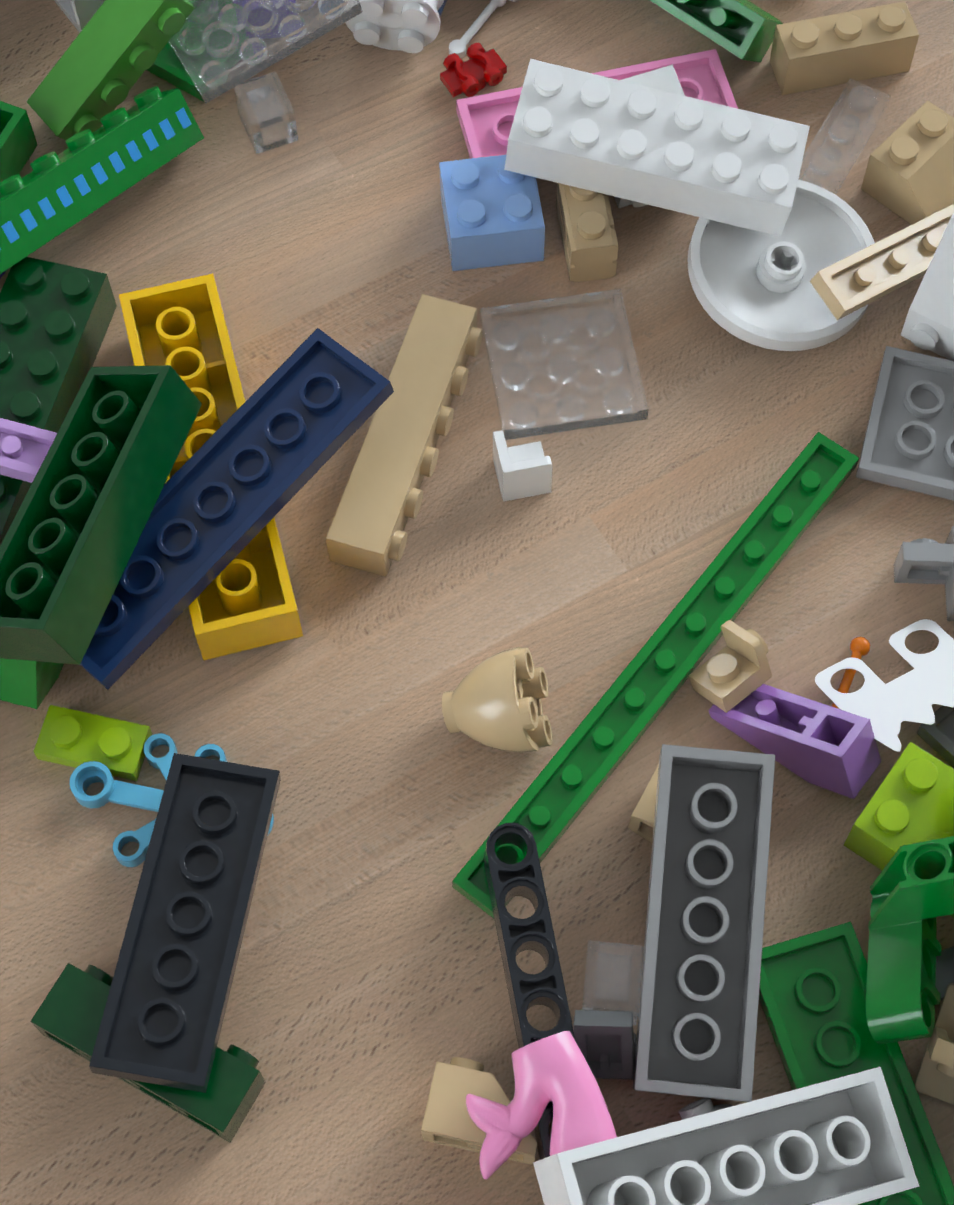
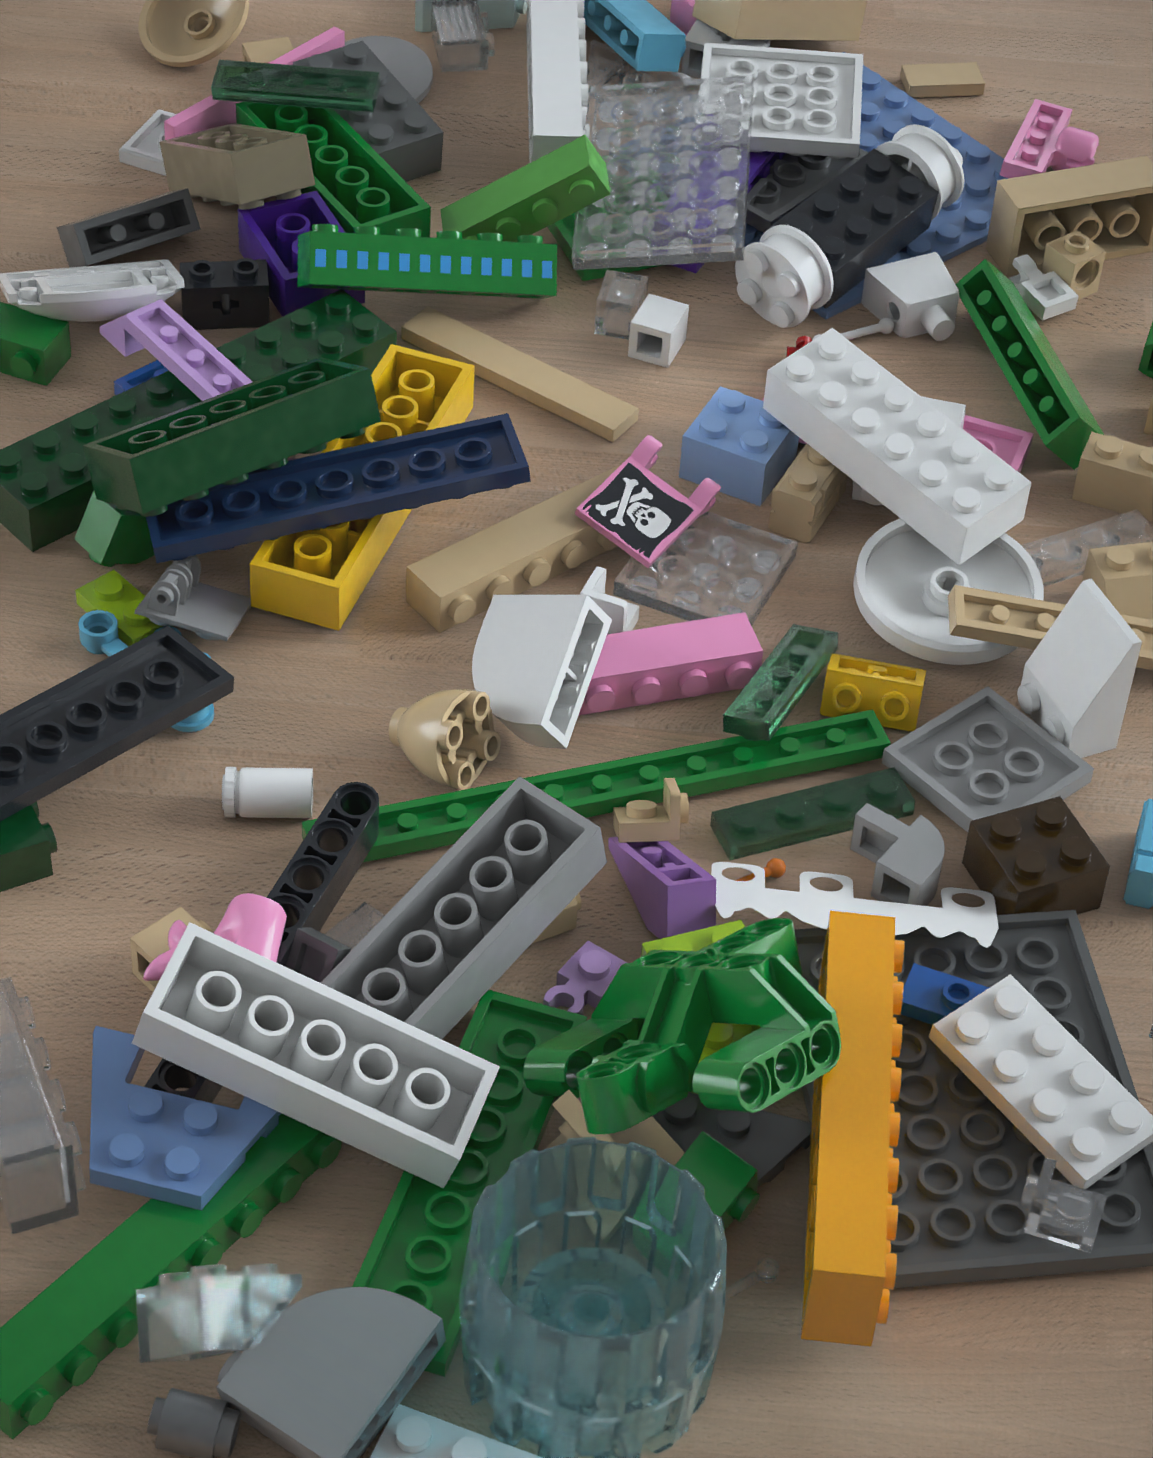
camera: 30 degrees right, 20 degrees down
(163, 701) = (186, 603): none -> light grey hinge
(230, 242) = (521, 374): none -> tan tile
(320, 122) = (658, 330): none -> white brick
(394, 866) = (268, 792): none -> white piece
(476, 342) = (641, 509): none -> flag
(526, 576) = (539, 662): none -> white brick
(610, 496) = (673, 663): none -> bright pink brick
(728, 454) = (780, 683): none -> clear green plate
(797, 406) = (867, 684): none -> yellow bracket
(808, 871) = (583, 979): none -> lavender plate
(843, 569) = (808, 813): none -> clear green plate

